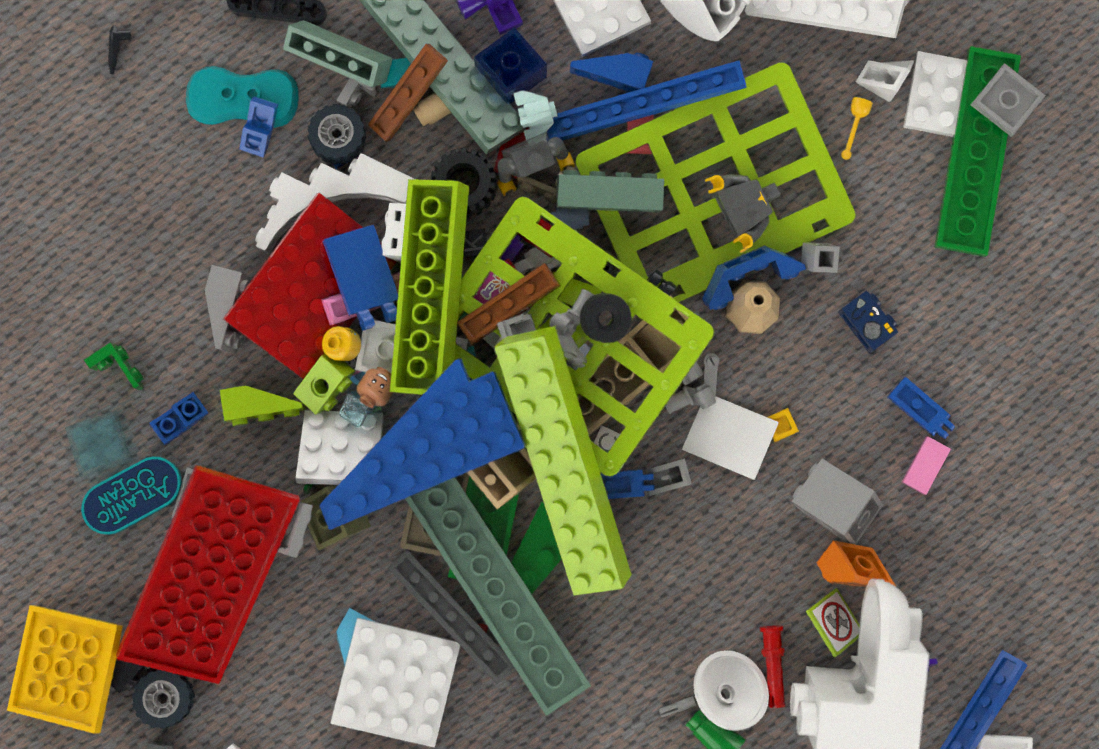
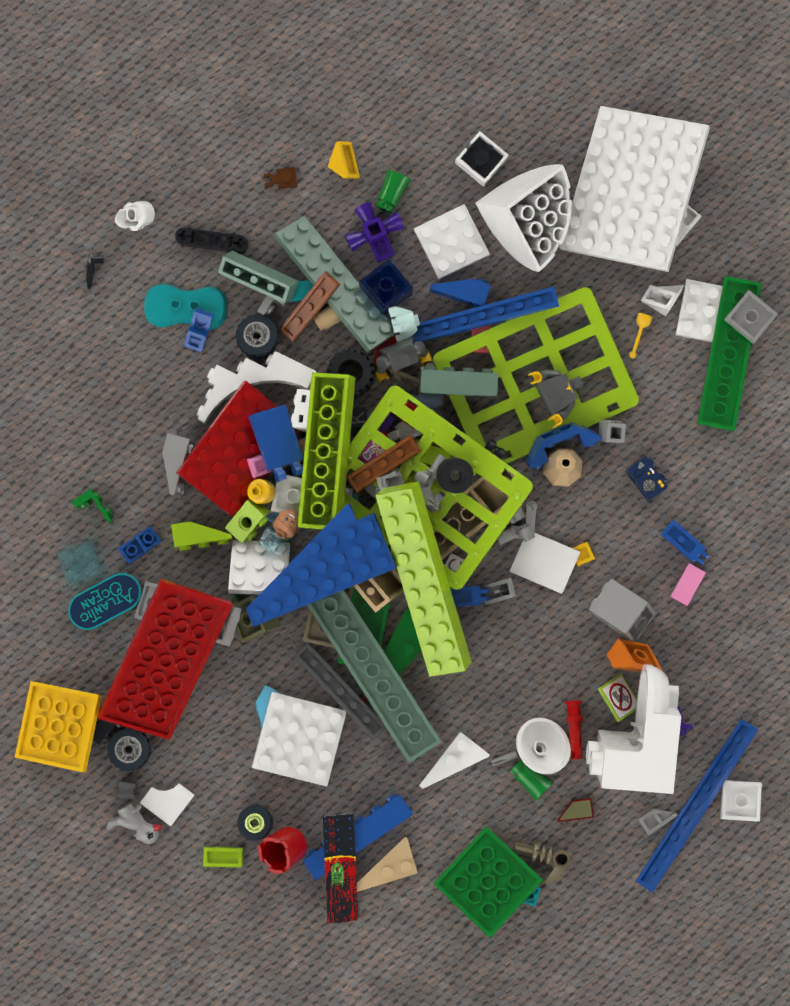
camera: 10 degrees left, 0 degrees up
(614, 704) = (457, 757): none -> white wing

